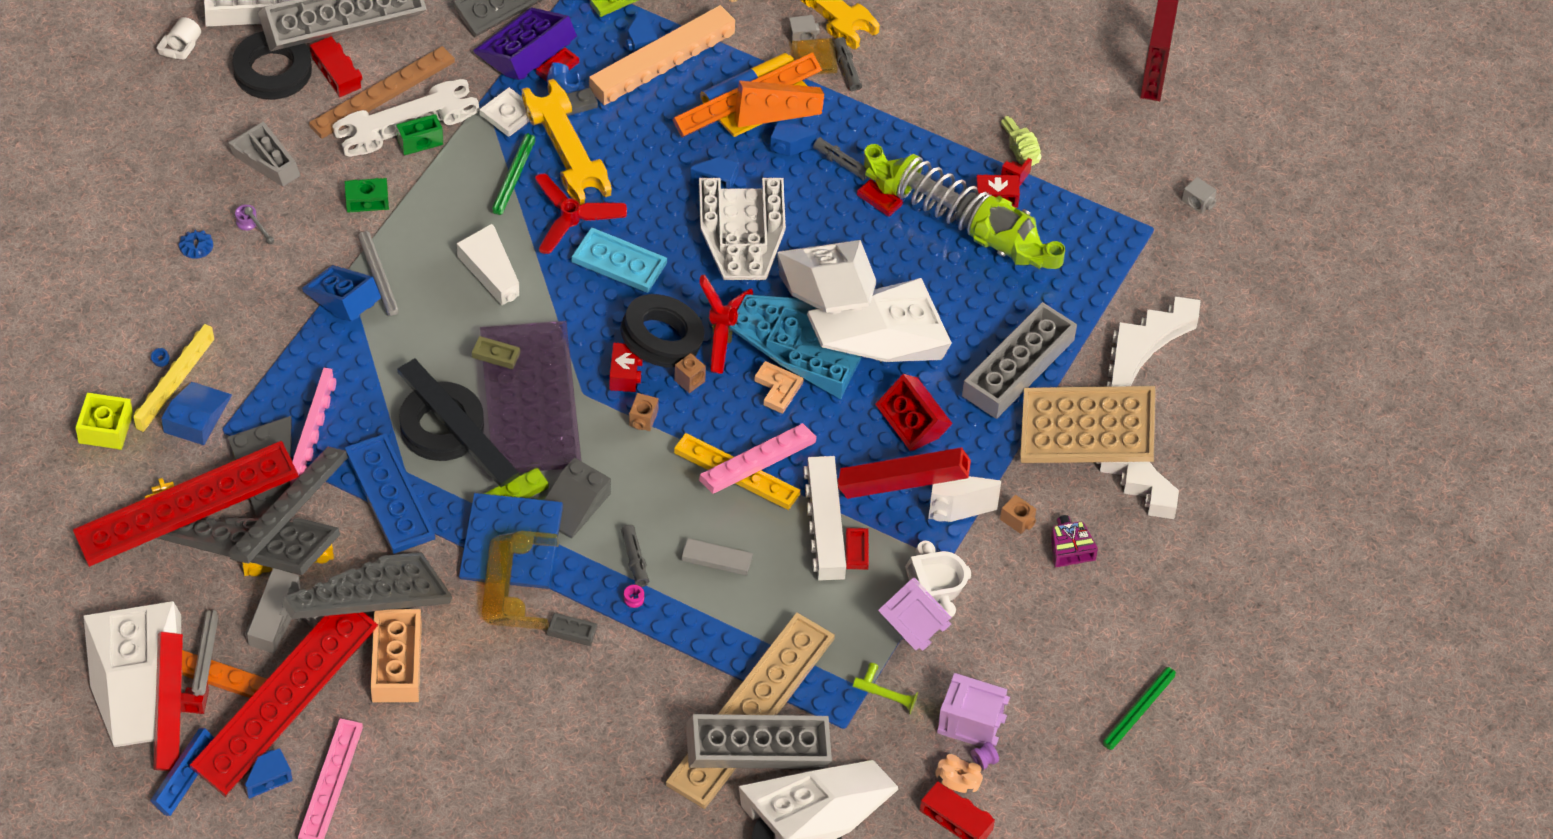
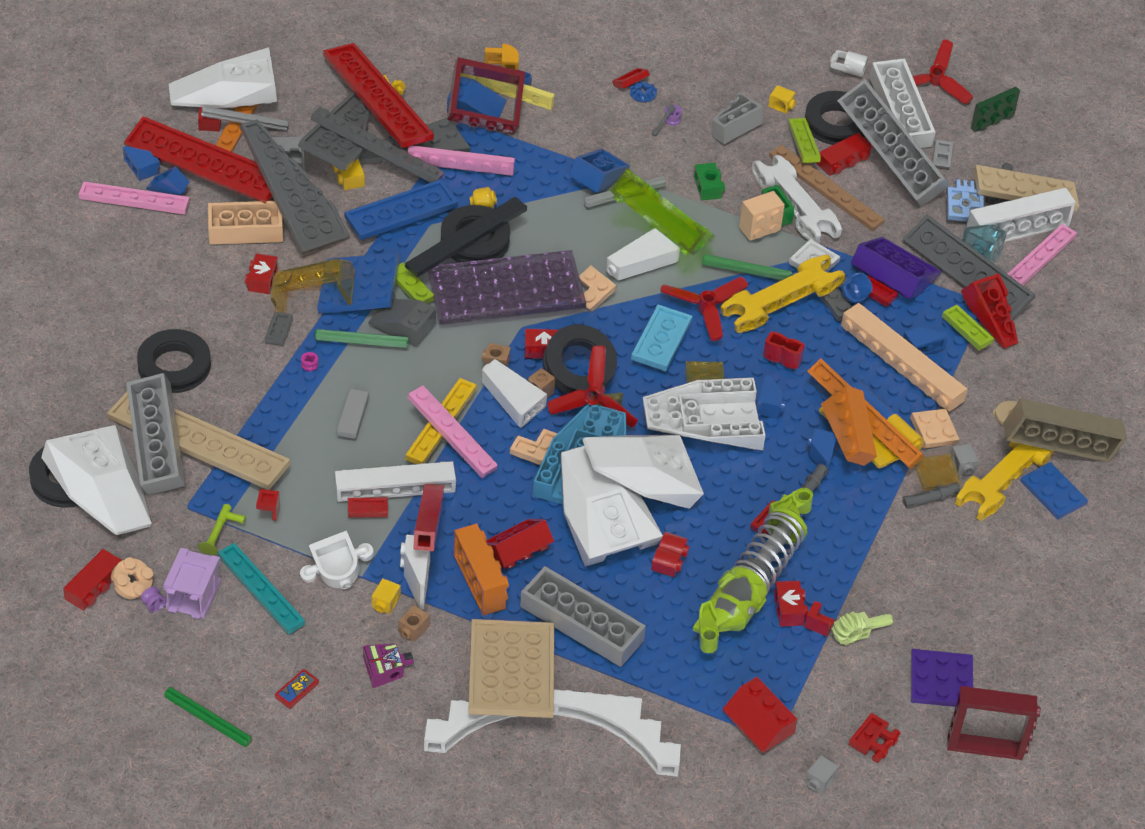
camera: 85 degrees right, 5 degrees down
(104, 421) = (454, 45): neon yellow brick -> none
(121, 370) = (506, 56): none -> light orange brick
(168, 700) = (196, 98): tile -> none
(173, 252) = (630, 78): none -> red tile
(181, 775) = (132, 115): blue plate -> none
(203, 414) = (490, 72): none -> dark red window
(234, 111) = (782, 99): none -> yellow brick
(310, 97) = (804, 140): none -> lime plate
(310, 743) = (169, 182): none -> blue slope
(383, 408) = (484, 197): none -> yellow head
(446, 144) = (761, 215): none -> light nougat brick
(456, 221) = (661, 213): none -> clear neon green windscreen
(482, 642) = (261, 273): none -> red brick
(496, 352) = (541, 256): olive plate -> none
(532, 310) = (598, 287): none -> light nougat plate
(600, 543) = (361, 338): none -> green axle
(623, 765) = (181, 341): none -> black tyre
(636, 562) = (348, 359): dark grey pin -> none
(652, 151) = (783, 350): none -> red brick
(678, 230) = (703, 370): none -> clear yellow plate
(698, 400) = (513, 392): none -> white slope
(756, 46) = (935, 428): none -> light nougat plate
(859, 634) = (269, 501): none -> red panel
(915, 614) = (285, 534): lavender container -> none
(937, 281) = (670, 554): none -> red brick
(967, 654) = (261, 588): none -> teal plate
(979, 435) = (480, 569): none -> orange brick
(982, 537) = (386, 596): none -> yellow brick
(1078, 91) = (938, 676): none -> dark purple plate
(1100, 626) = (296, 688): none -> tile
(1136, 230) = (760, 715): none -> red slope
(1148, 154) = (869, 733): none -> red plate

